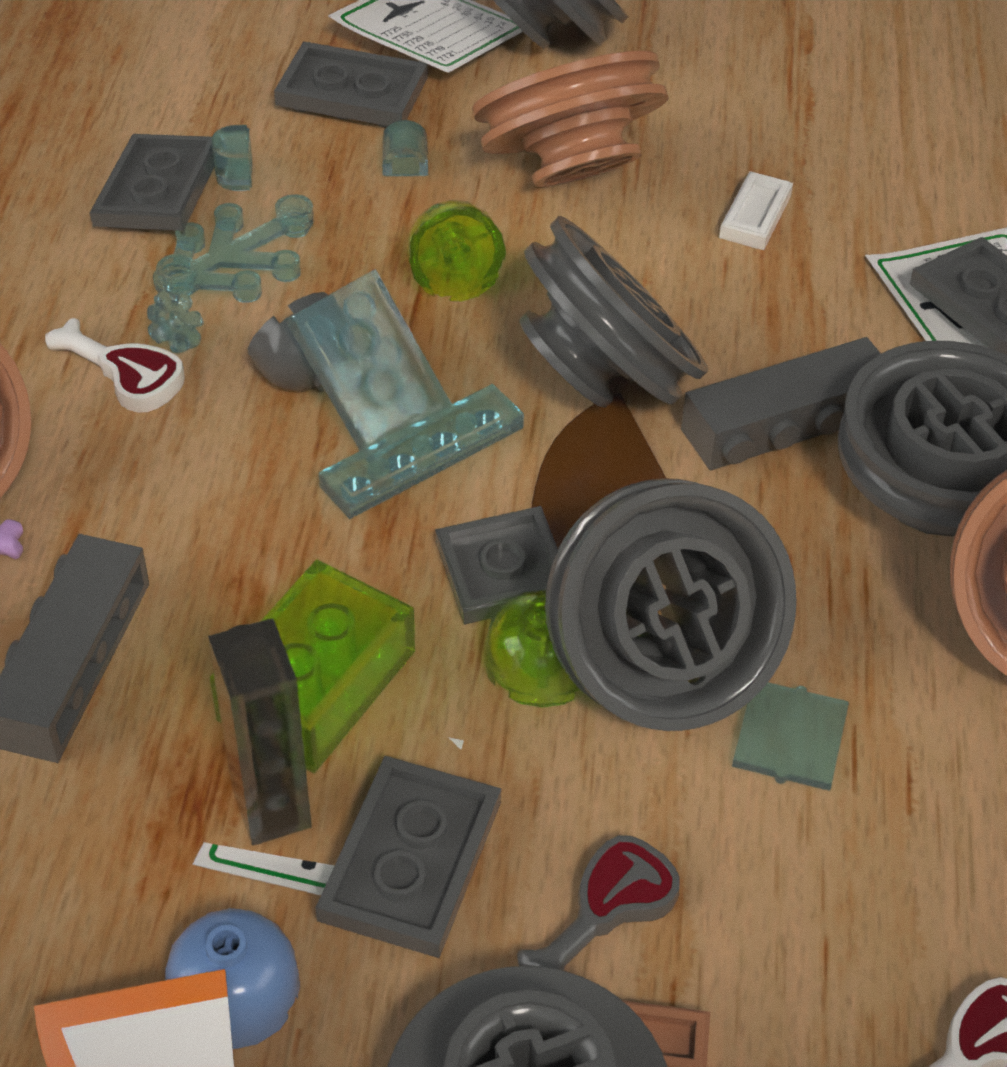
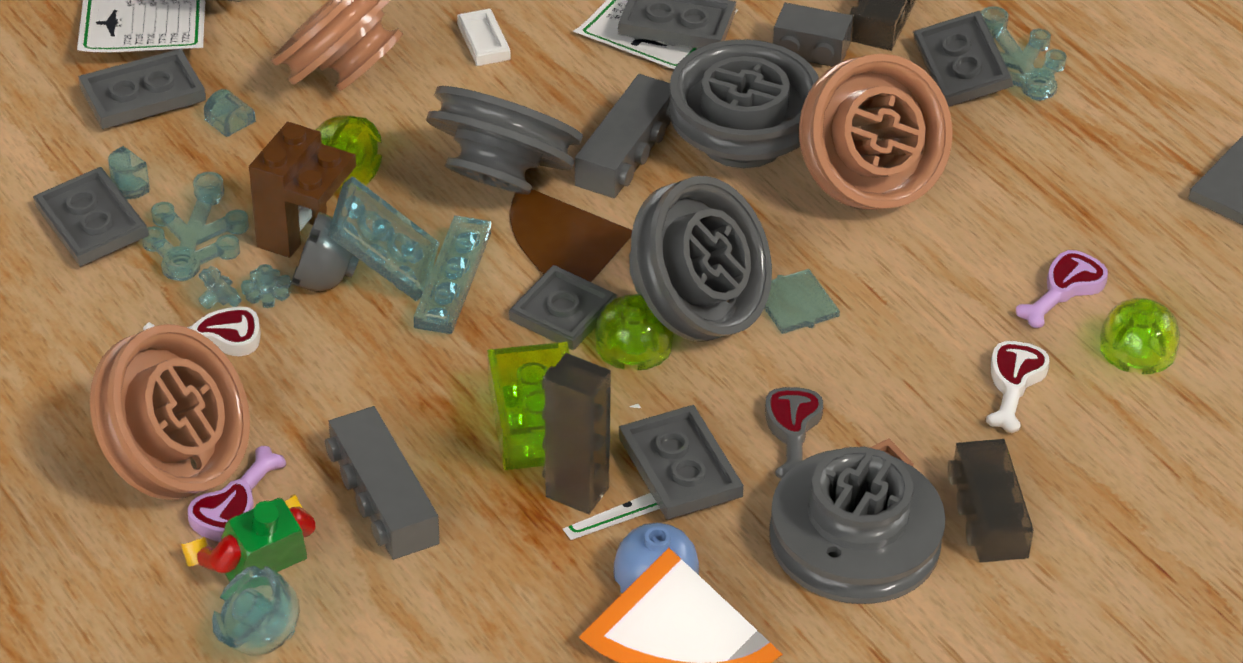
camera: 40 degrees left, 5 degrees down
(227, 349) = (266, 285): none -> clear light blue plant
(331, 236) = (293, 184): none -> reddish brown brick

